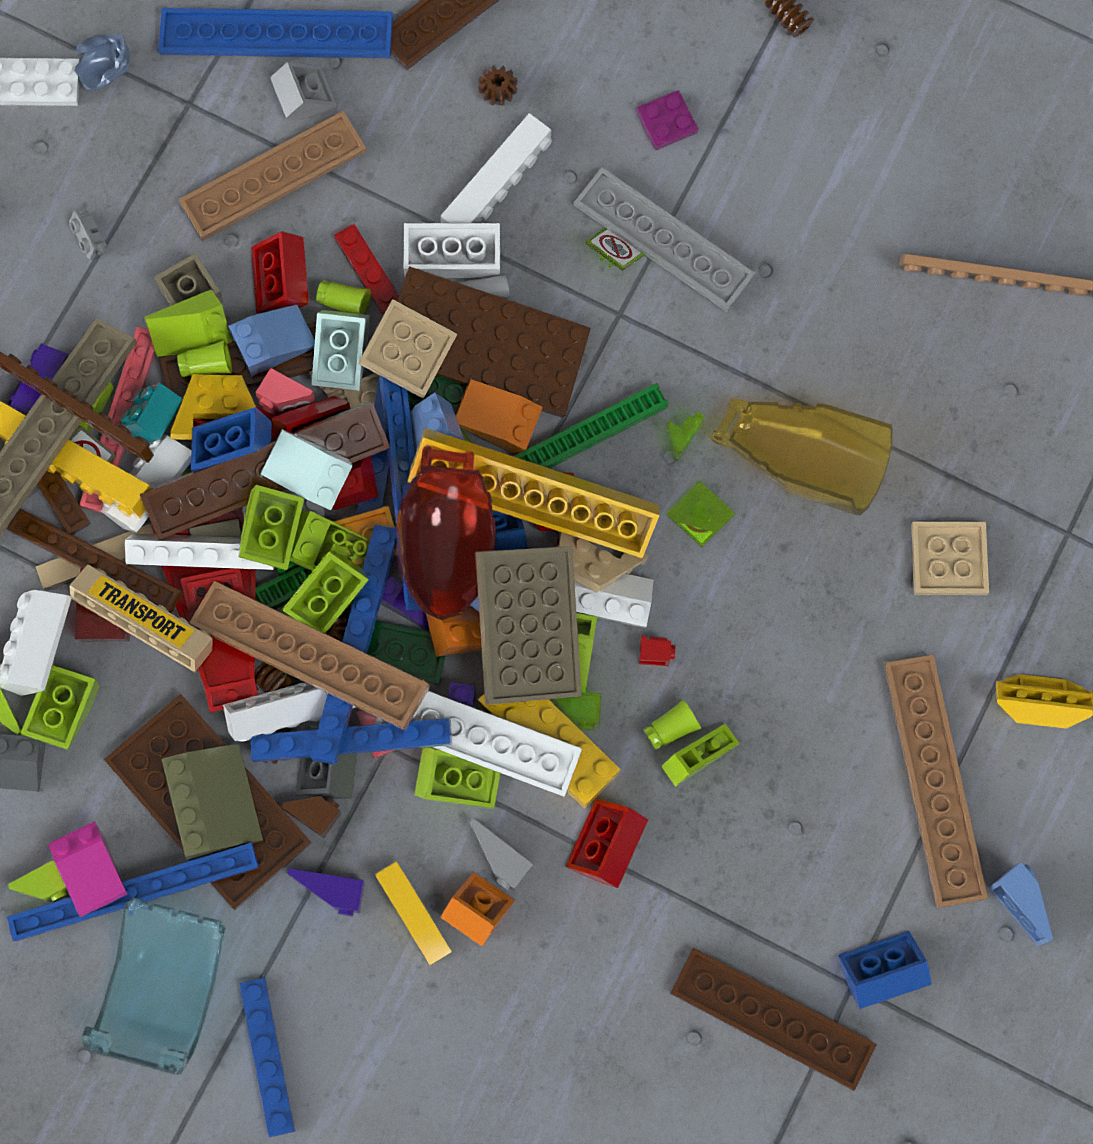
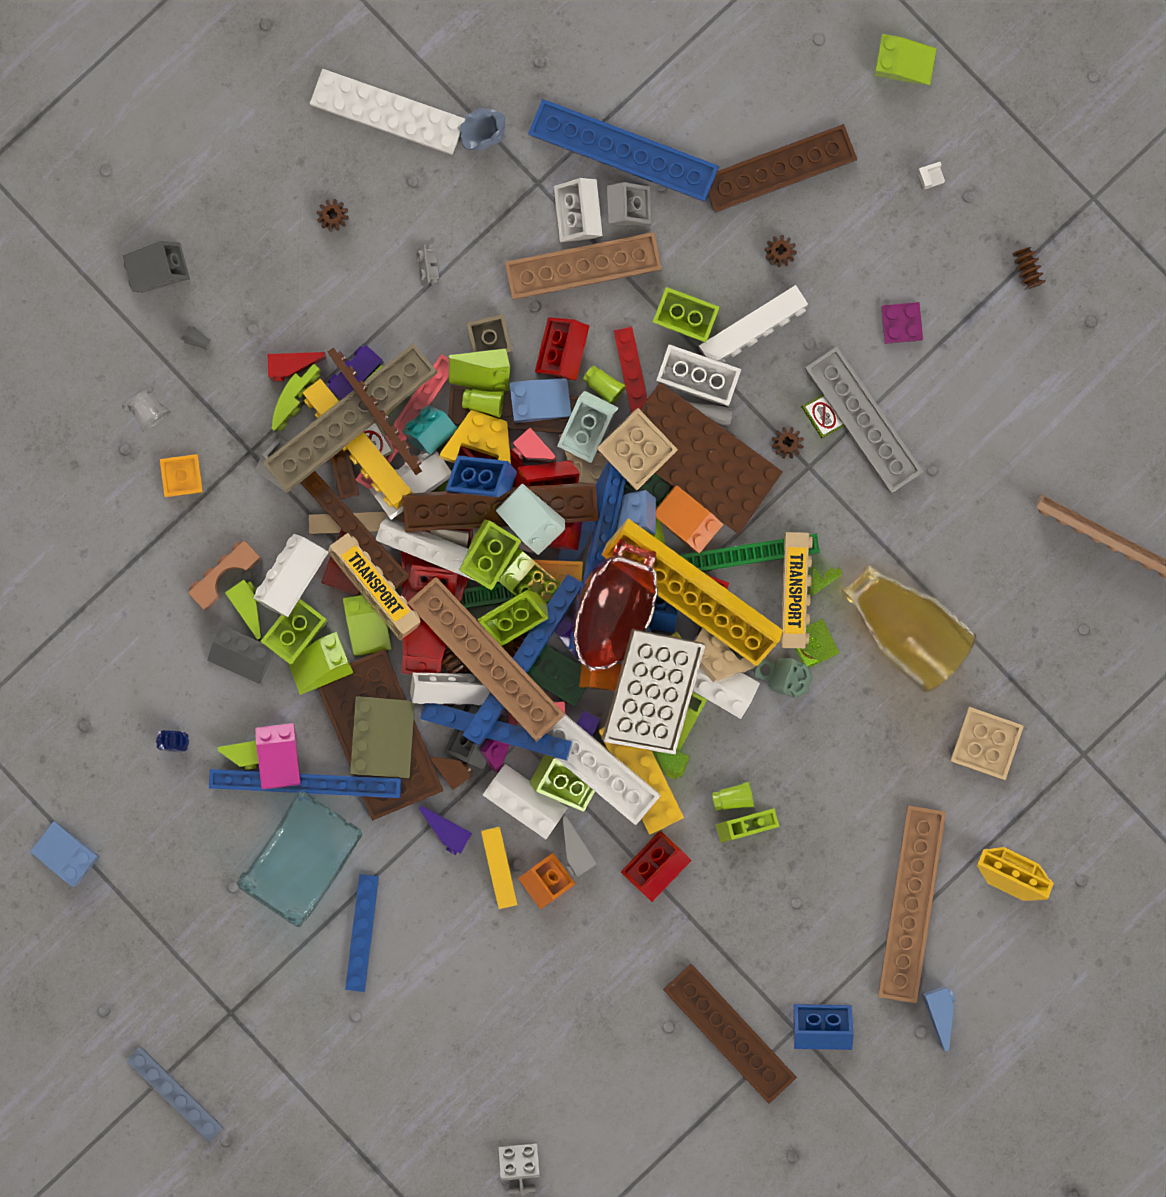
camera: 25 degrees right, 10 degrees up
(106, 738) = (320, 664): none -> lime slope
(148, 674) = (365, 627): none -> lime slope
(245, 115) = (578, 210): none -> white slope
(359, 772) = (494, 753): none -> magenta wing
(413, 185) = (686, 314): none -> lime slope
(417, 821) = (519, 799): none -> white slope
(581, 300) = (784, 448): none -> reddish brown gear
(655, 454) = (795, 589): none -> brick
(656, 651) = (742, 738): red window -> none
(682, 559) = (786, 676): none -> sand green piece

